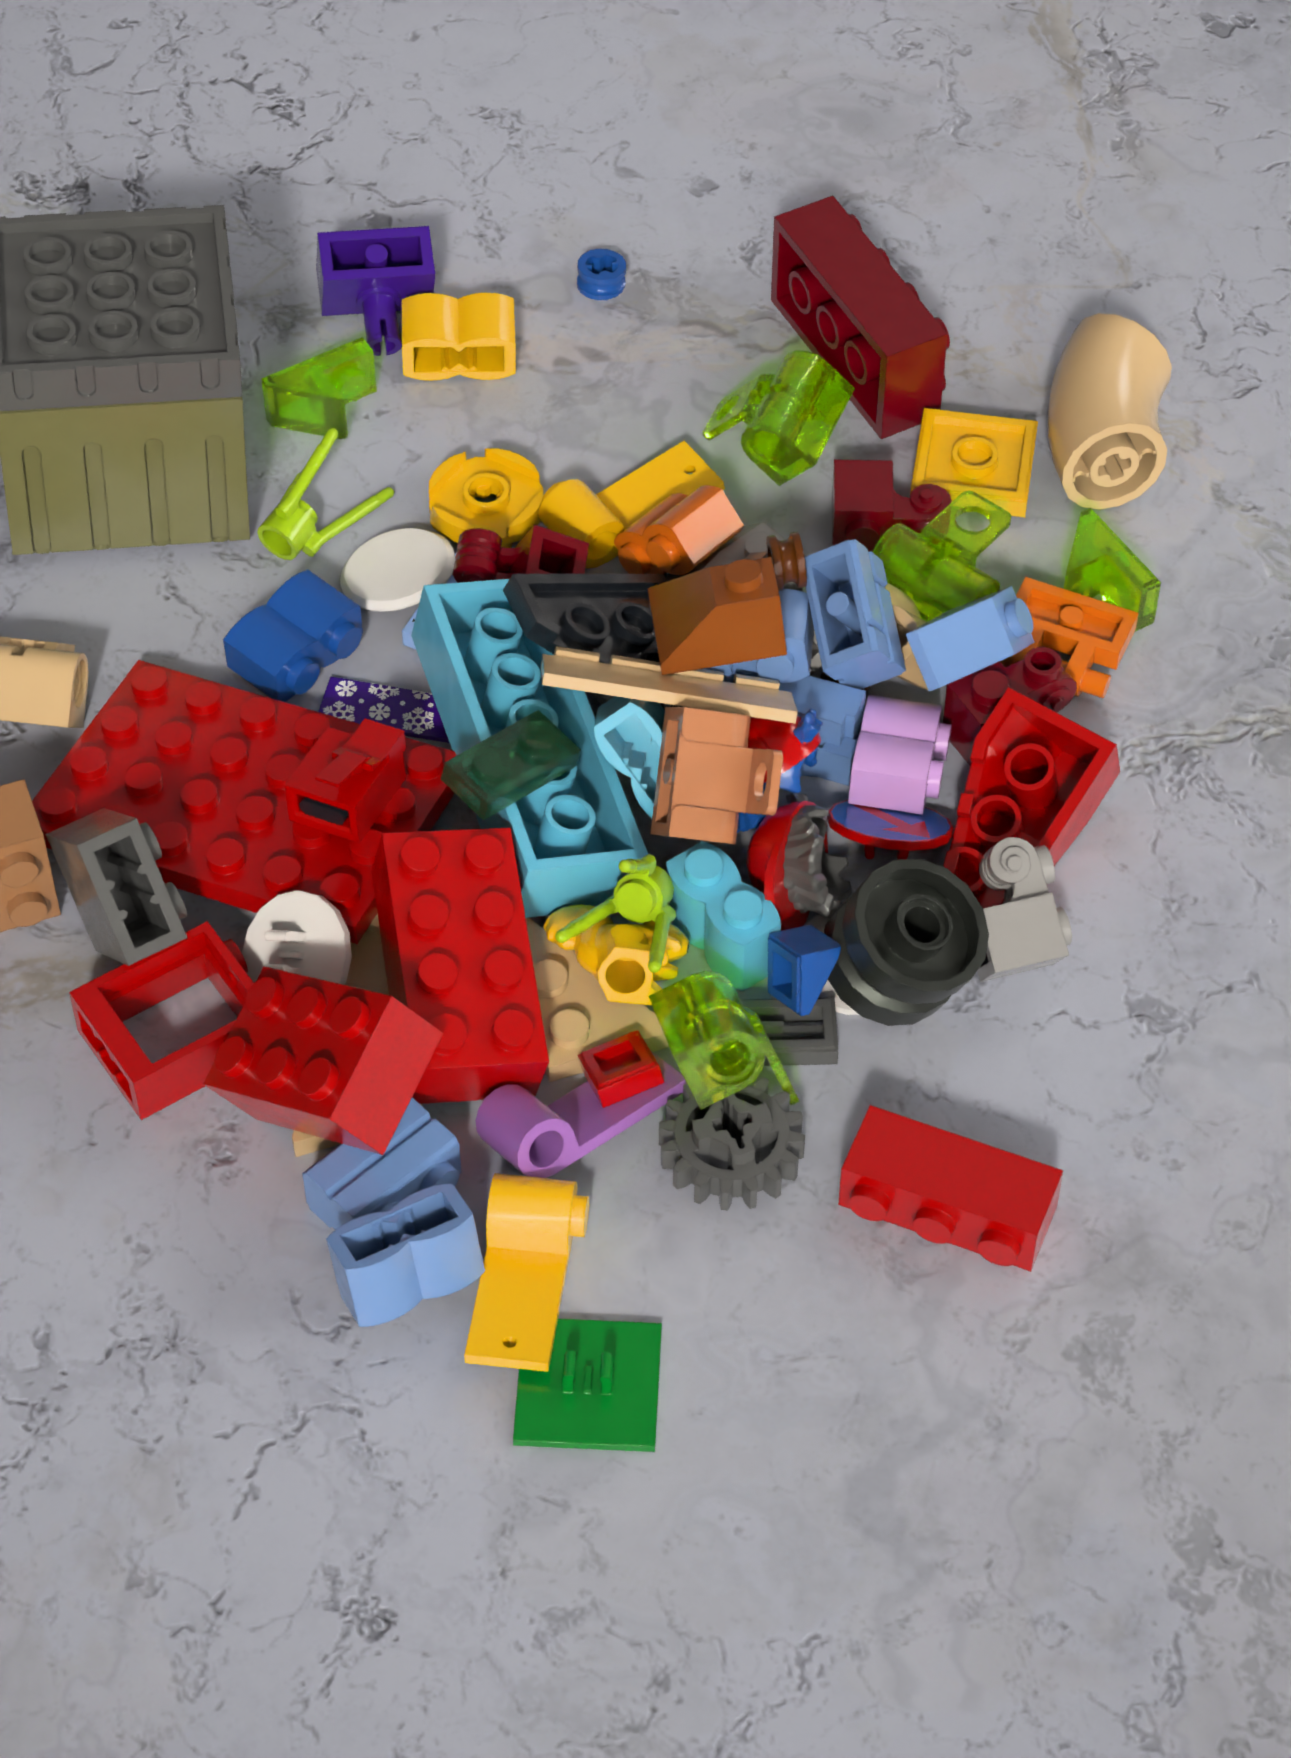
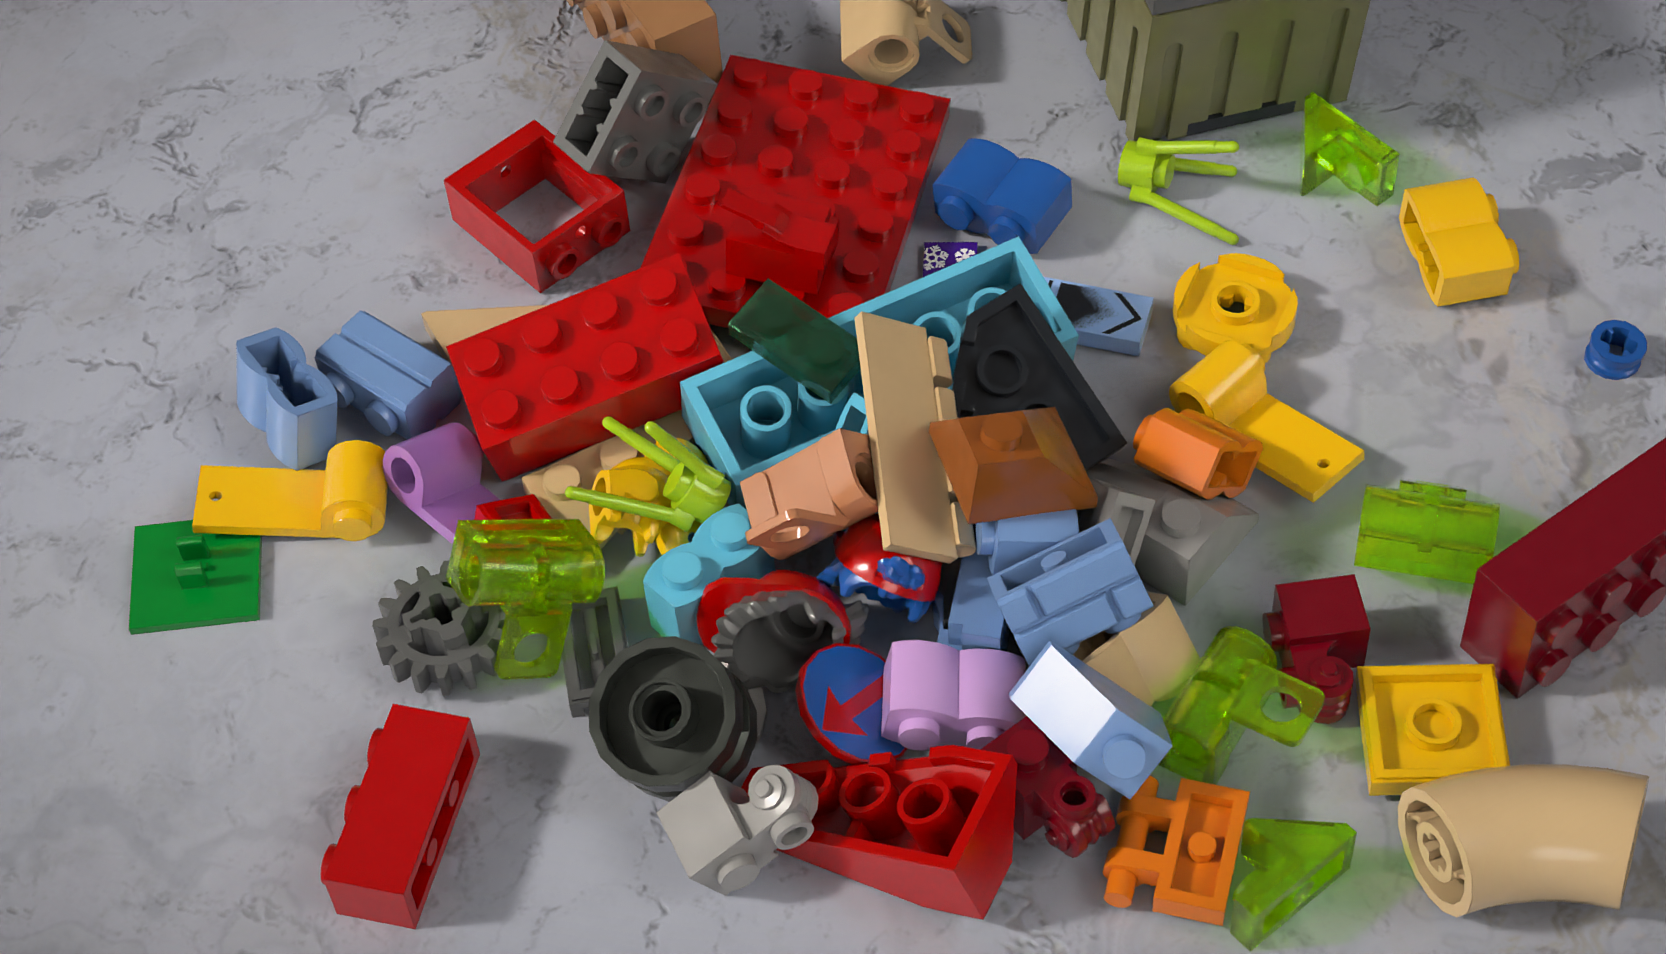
camera: 85 degrees right, 0 degrees up
(299, 936) = (615, 261): white piece -> none
(323, 1059) = (452, 281): red piece -> none
(372, 274) = (1505, 152): dark purple brick -> none
(394, 567) = (1122, 261): white piece -> none
(538, 552) = (1116, 339): dark red brick -> none
(787, 560) = (1095, 498): reddish brown bush -> none
(800, 966) = (631, 627): blue slope -> none

